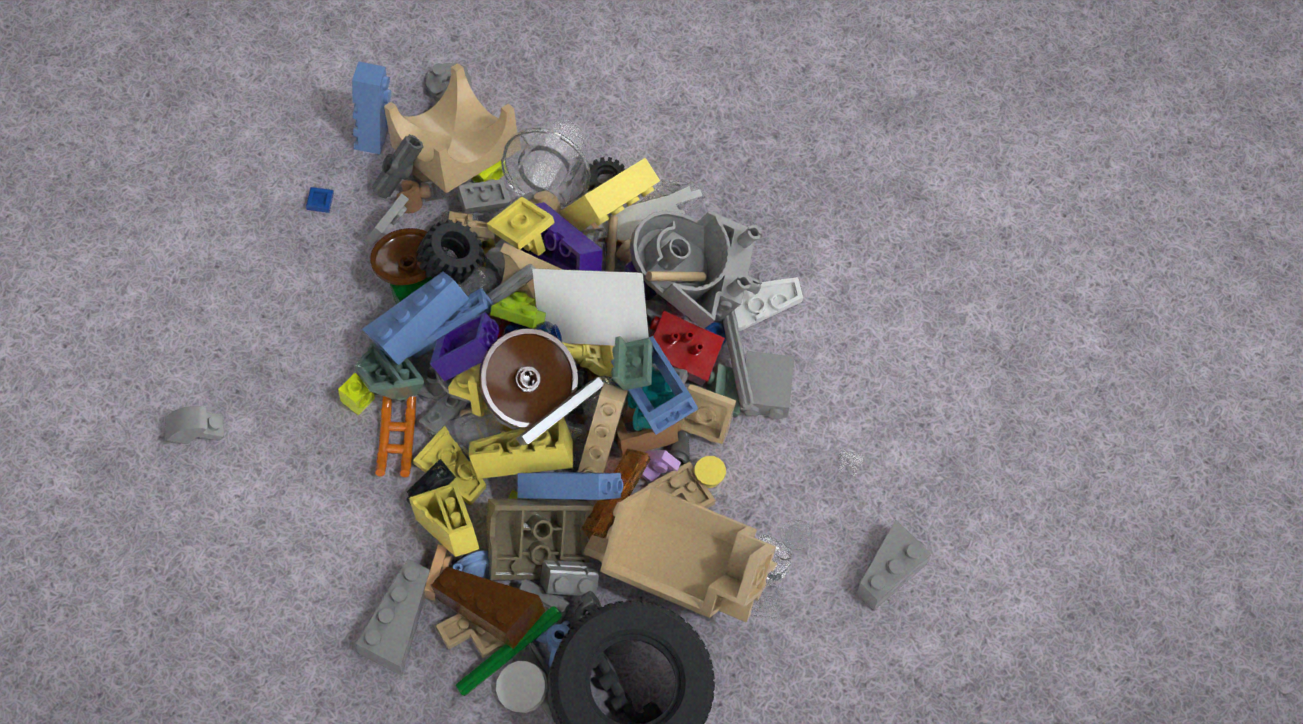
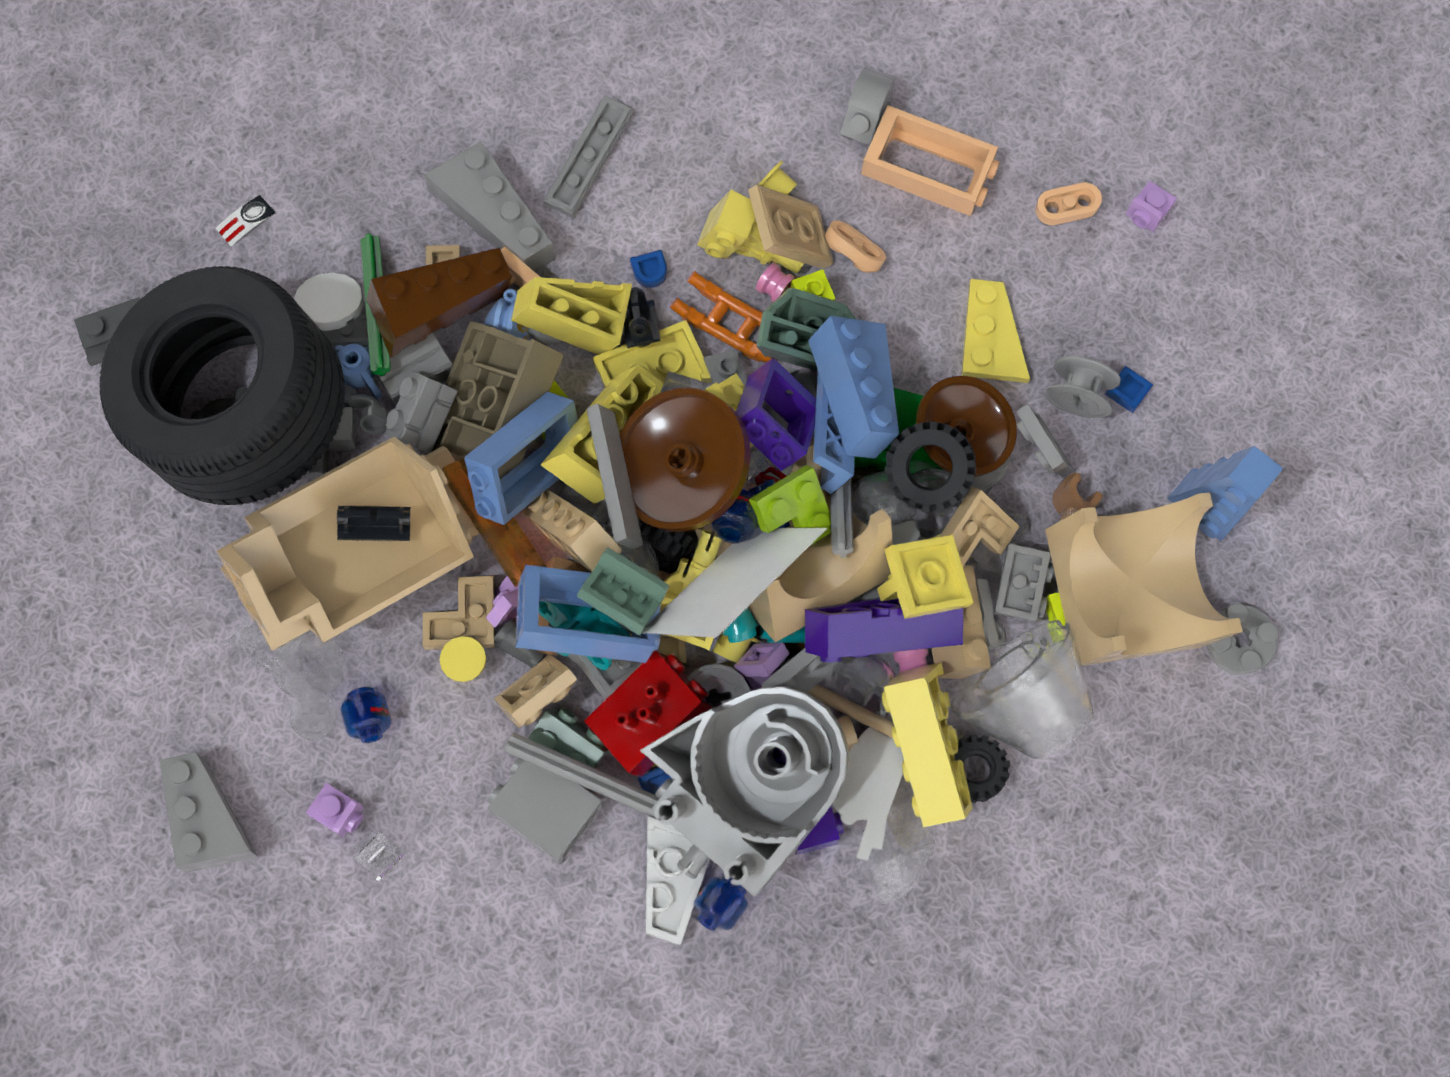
camera: 120 degrees right, 10 degrees up
(184, 236) = (1150, 206): none -> lavender bracket
(207, 283) = (1066, 203): none -> light nougat plate
(216, 338) = (937, 141): none -> light nougat piece
(284, 455) = (778, 180): none -> light yellow piece
(305, 388) = (855, 246): none -> light nougat plate
(318, 420) = (790, 227): none -> tan tile
(321, 585) = (588, 156): none -> light grey tile
(323, 288) = (991, 335): none -> light yellow wing
(336, 453) = (734, 229): none -> light yellow brick
(338, 215) = (1084, 381): none -> light grey piece
(357, 421) = (774, 281): none -> bright pink wheel
(385, 505) = (649, 269): none -> blue tile
(397, 166) = (1118, 487): dark grey piece -> none
(662, 550) = (373, 523): none -> black hinge
(675, 276) = (739, 740): tan bar -> none
(764, 266) = (720, 904): none -> clear blue head
(775, 509) = (365, 714): none -> clear blue head
(840, 496) = (336, 811): none -> lavender bracket

